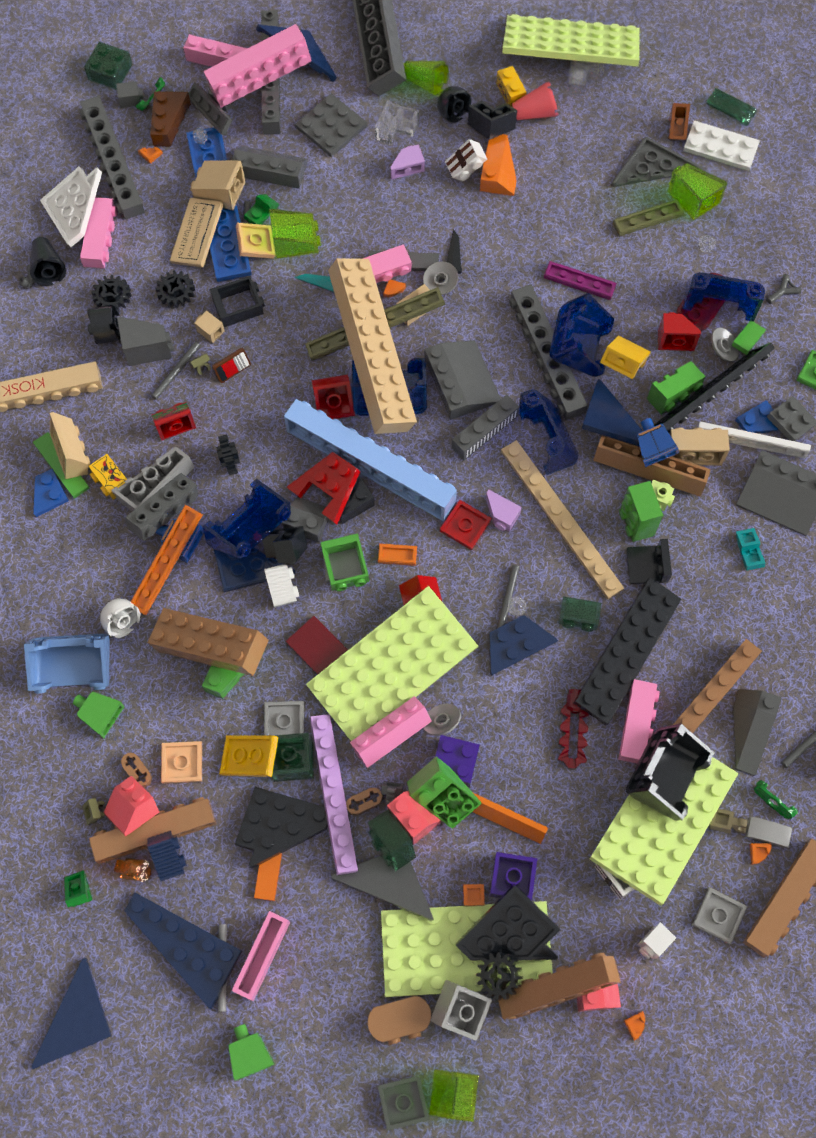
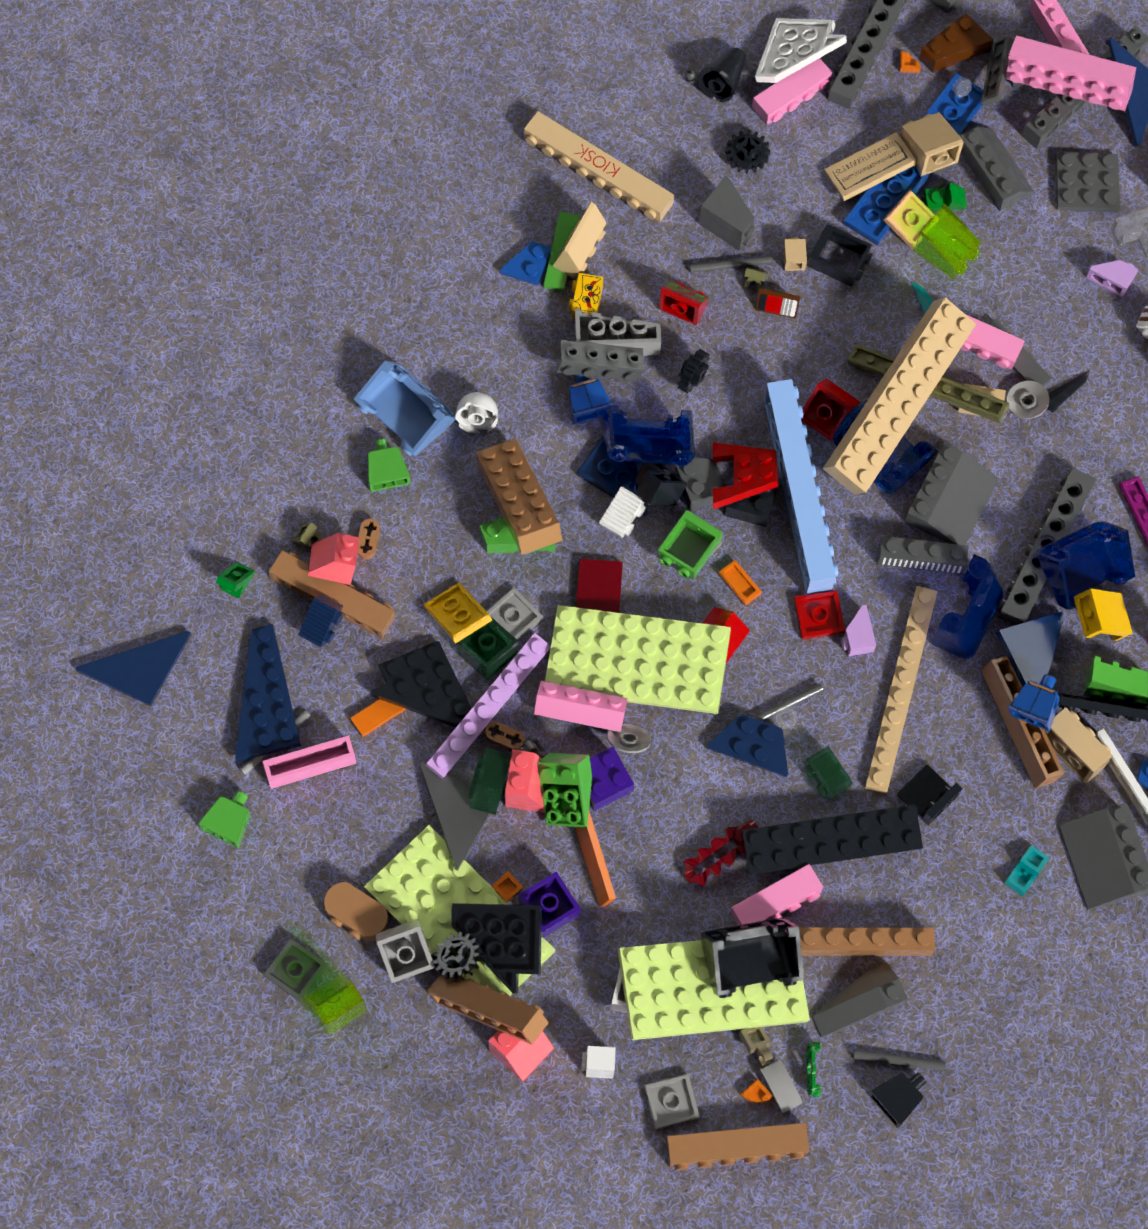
camera: 45 degrees right, 0 degrees up
(104, 324) = (712, 169): black brick -> none
(133, 869) = (288, 606): clear orange hips -> none
(159, 85) = (981, 10): green piece -> none
(166, 559) = (558, 403): orange tile -> none
(175, 289) = (801, 198): black gear -> none
(181, 762) = (406, 567): light nougat tile -> none
(393, 288) = (980, 370): orange tile -> none
(635, 1025) = (519, 1105): orange tile -> none
(641, 511) = (964, 744): bright green brick -> none
(663, 493) = (1000, 752): yellowish green brick -> none

